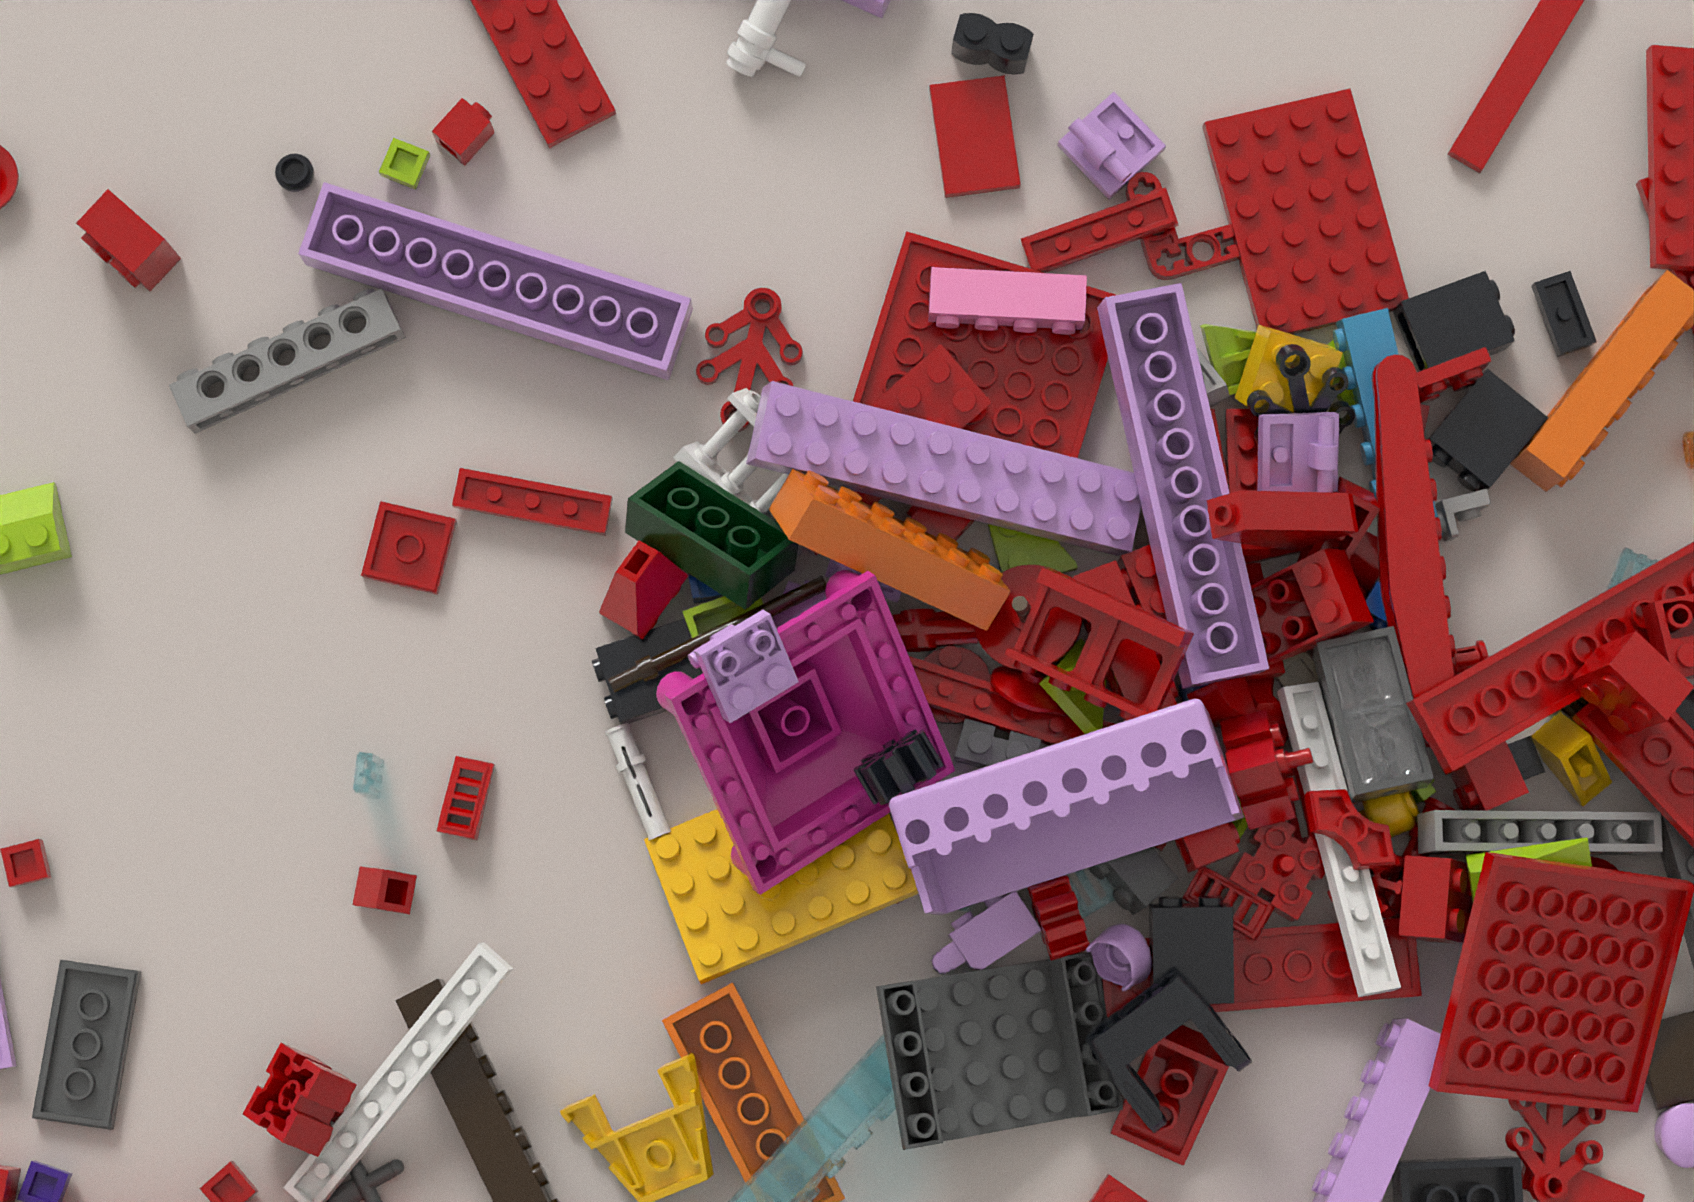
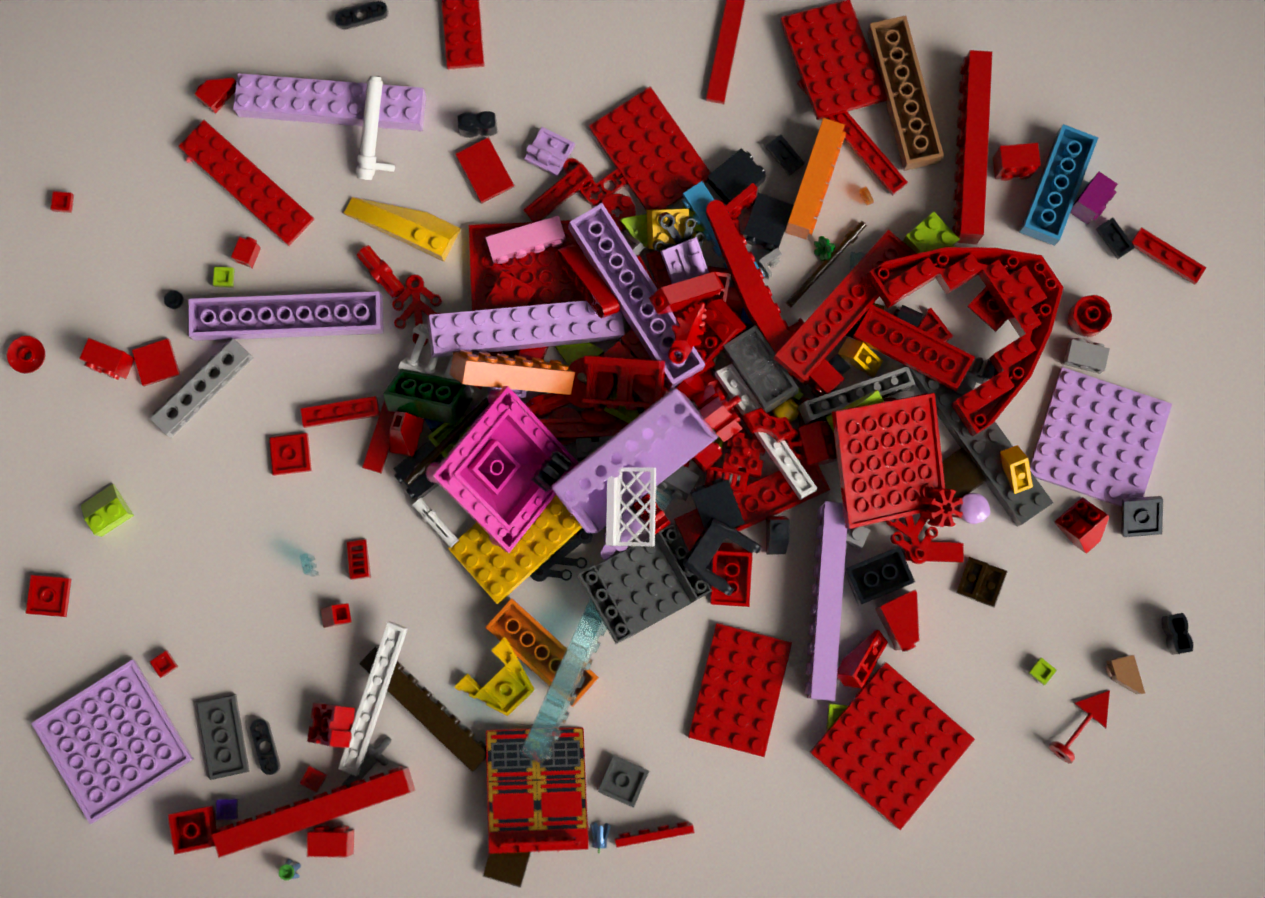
camera: 15 degrees left, 0 degrees up
(169, 1123) = (266, 731): none -> black beam
(218, 280) = (156, 362): none -> red tile
(588, 586) = (380, 442): none -> red tile
(706, 260) = (380, 271): none -> red piece
(745, 665) = (462, 448): lavender plate -> none
(787, 189) = (406, 225): none -> yellow wedge
(850, 937) = (559, 558): none -> black plant
(992, 886) = (615, 509): none -> white fence
(1098, 423) = (587, 281): none -> red beam
(1121, 956) = (685, 520): lavender hair -> none
(1217, 294) = (624, 204): none -> red plate
(1257, 594) = (687, 332): none -> red plant
(1288, 1046) = (777, 534): none -> black slope
(1444, 1109) = (857, 536): none -> light grey brick
(1575, 521) = (824, 248): none -> green plant
(1628, 1112) = (941, 507): none -> red gear
(1631, 684) = (872, 312): red brick -> none
(1633, 519) = (850, 238): none -> dark brown bar

